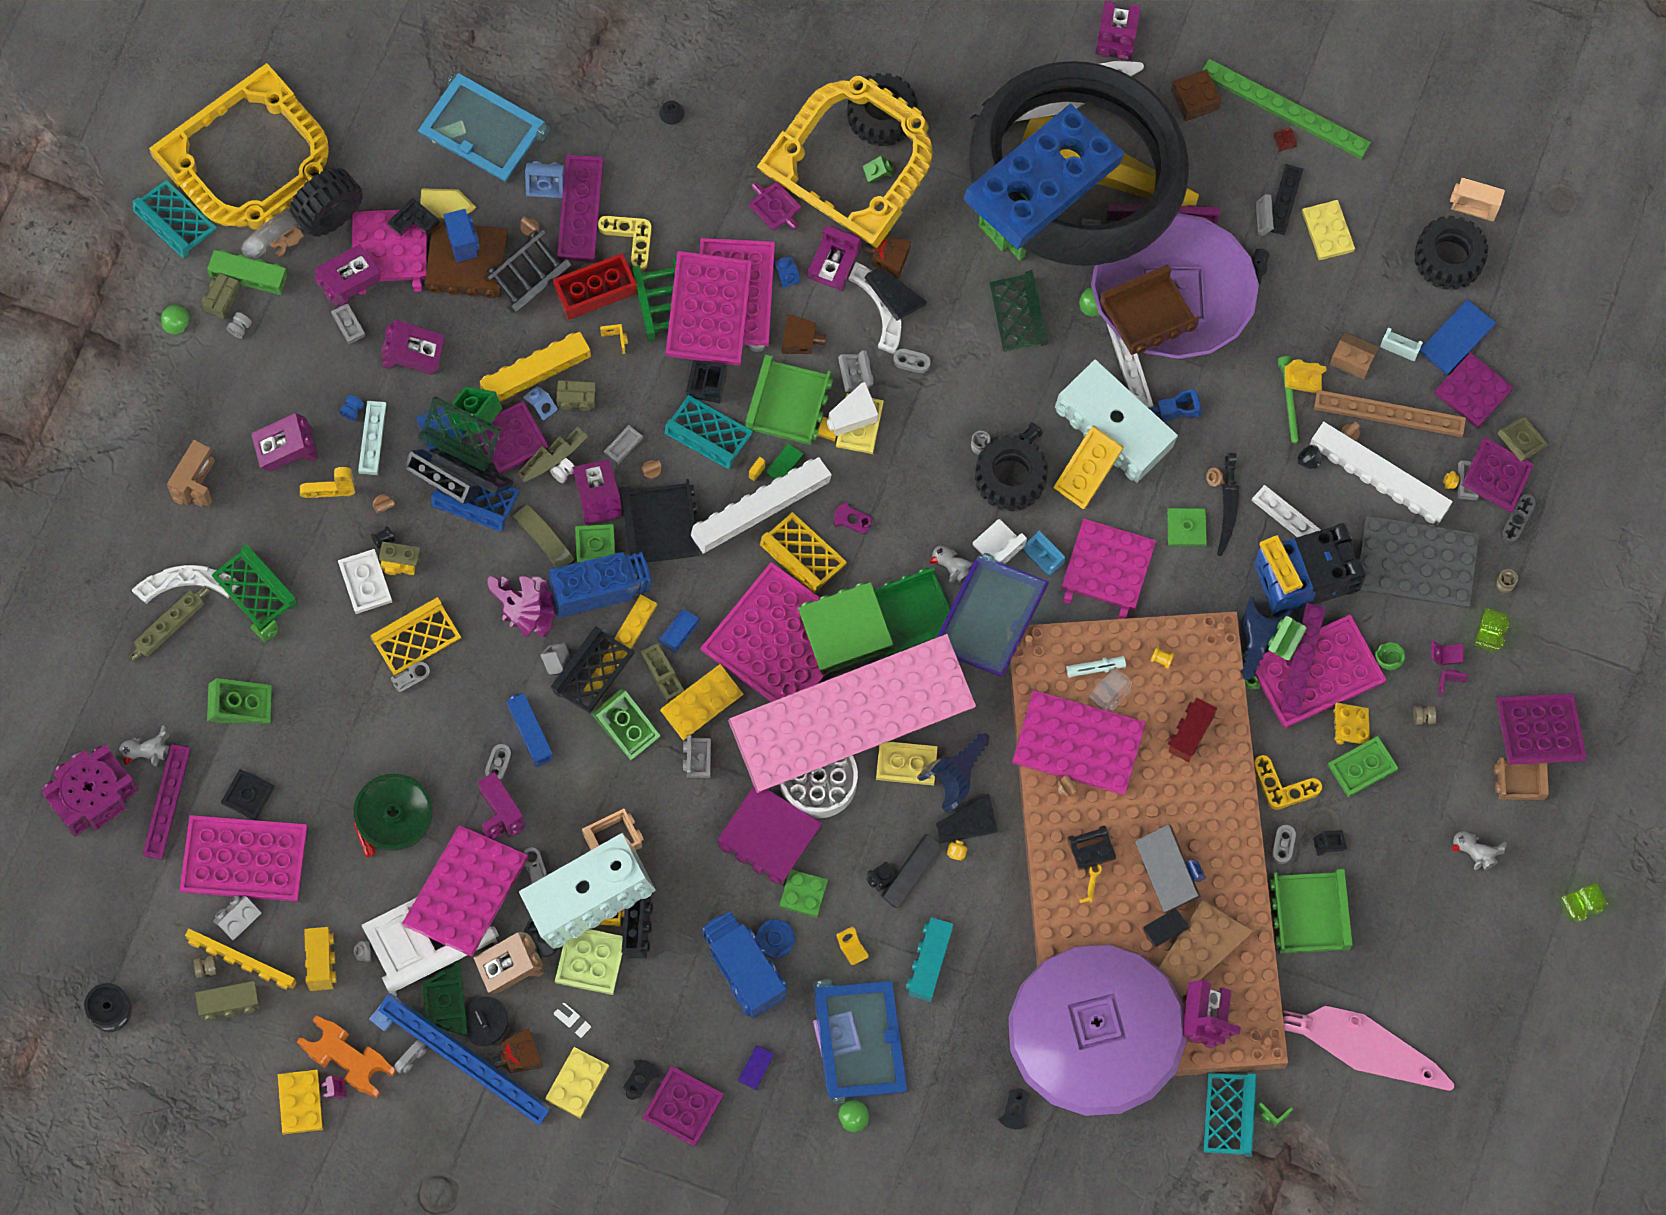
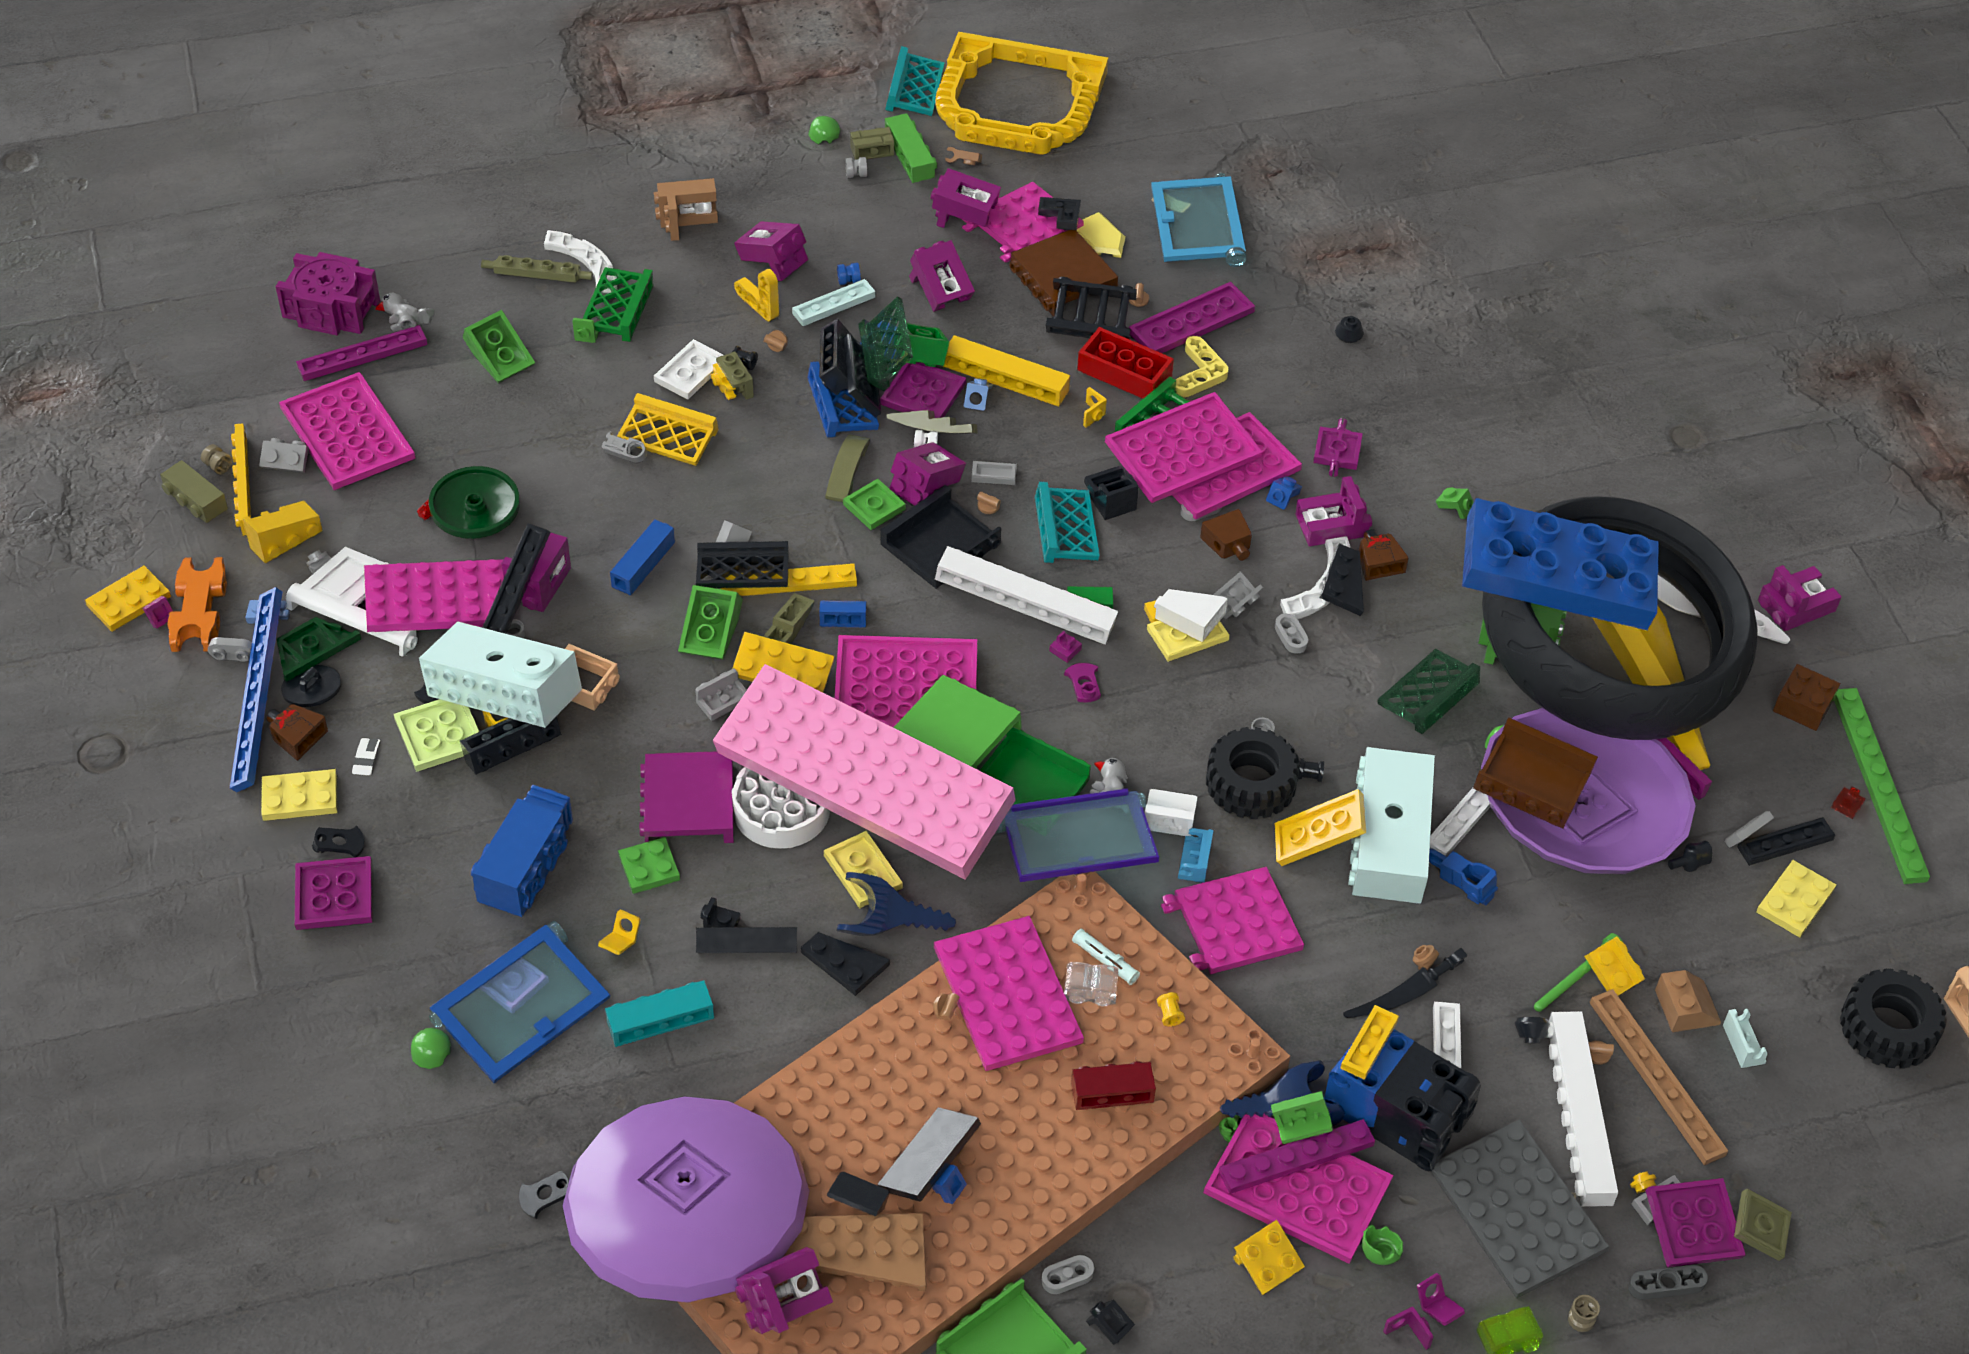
camera: 55 degrees right, 20 degrees down
(96, 1007) = (124, 413): black wheel -> none
(247, 795) = (414, 403): black tile -> none
(268, 233) = (969, 142): clear slope -> none
(326, 202) = (1022, 127): black tyre -> none
(348, 323) = (926, 231): light grey plate -> none
(461, 235) = (1074, 240): blue brick -> none
(496, 763) = (590, 553): light grey plate -> none
(512, 833) = (516, 579): none -> black tile
(523, 956) = (386, 665): brick -> none
(528, 608) = (755, 479): magenta animal -> none
(544, 179) = (1190, 276): medium blue brick -> none
(576, 395) = (1008, 411): olive brick -> none
(598, 583) = (832, 518): blue piece -> none
(756, 1067) = (423, 932): dark purple tile -> none
(757, 469) = (1062, 577): yellow tile -> none
(776, 938) = (580, 870): blue tile -> none
(788, 401) = (1152, 560): bright green panel -> none
(790, 561) = (993, 653): yellow fence -> none
(815, 510) = (1065, 647): none -> magenta tile
(868, 223) = (1409, 512): yellow arch -> none
(881, 130) = (1518, 446): black tyre -> none
(957, 850) = (805, 971): yellow piece -> none
(1091, 884) = (868, 1093): yellow piece -> none
(1092, 854) = (893, 1079): black plate -> none
(1186, 527) = (1345, 965): bright green plate -> none
(1283, 793) = (1129, 1238): yellow beam -> none
(1362, 766) = (1229, 1300): bright green plate -> none
(1424, 715) = (1344, 1323): dark tan wheel -> none
(1457, 337) = (1810, 1090): blue tile -> none
(1473, 390) = (1768, 1144): magenta plate -> none

